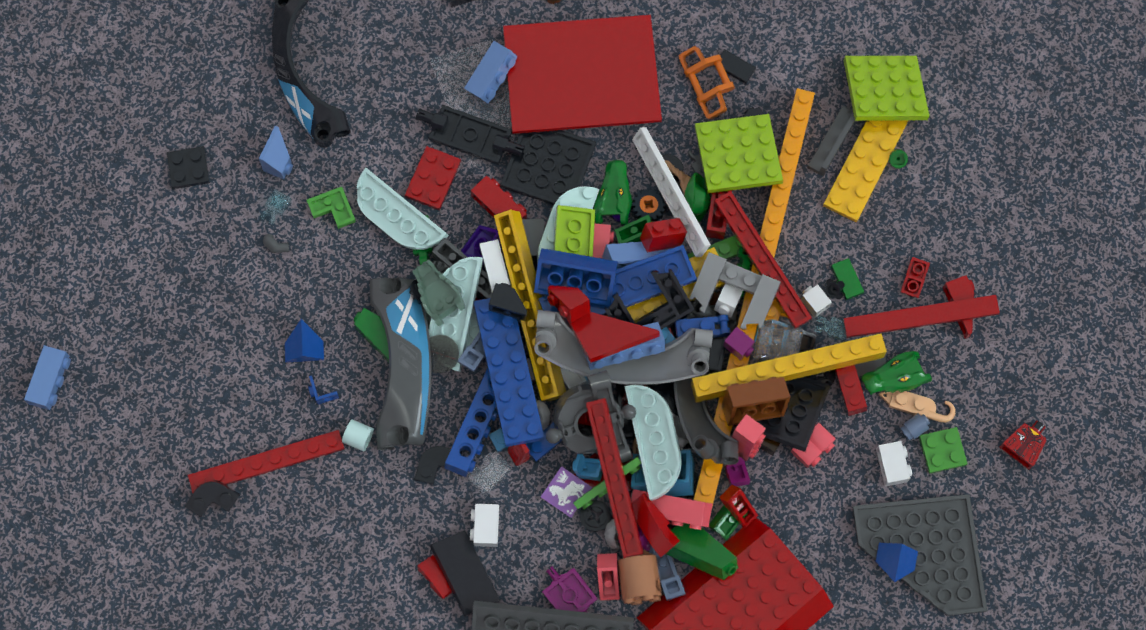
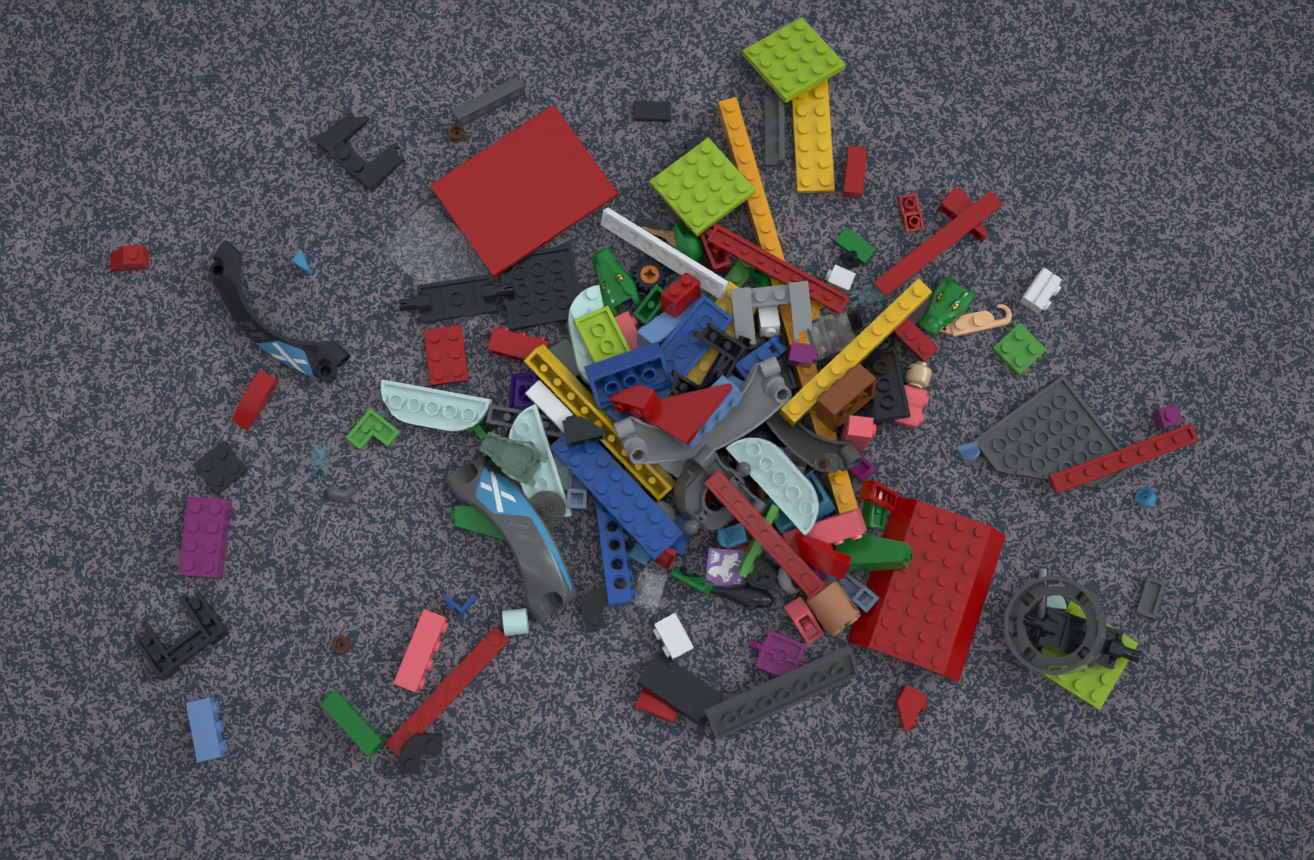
camera: 30 degrees left, 5 degrees up
(98, 297) = (168, 661): none -> black wedge
(140, 218) = (205, 538): none -> magenta brick
(171, 442) = (353, 723): none -> green slope
(198, 367) = (336, 644): none -> reddish brown plate
(249, 126) = (254, 399): none -> red slope
(263, 414) = (421, 650): none -> coral brick
(275, 156) = (295, 414): medium blue slope -> none
(303, 345) = (419, 568): blue slope -> none
(357, 33) = (301, 262): none -> dark azure slope
(491, 72) = (444, 232): medium blue brick -> none
(531, 486) = (693, 580): none -> green slope
(568, 524) = (745, 595): none -> black piece
(717, 91) = (651, 141): orange bar -> none
(836, 421) = (918, 375): none -> tan head
(843, 513) = (969, 450): none -> medium blue plate
(884, 214) = (854, 172): none -> red slope
(893, 463) = (986, 384): white brick -> none
(896, 559) = (1037, 467): blue slope -> none
(898, 158) = (838, 116): green tile -> none
(915, 426) = (985, 342): sand blue brick -> none
(980, 598) = (1123, 458): none -> red tile
(993, 409) = (1041, 290): none -> white brick
(1025, 444) = (1085, 305): red torso -> none
(1042, 584) = (1166, 417): none -> magenta brick

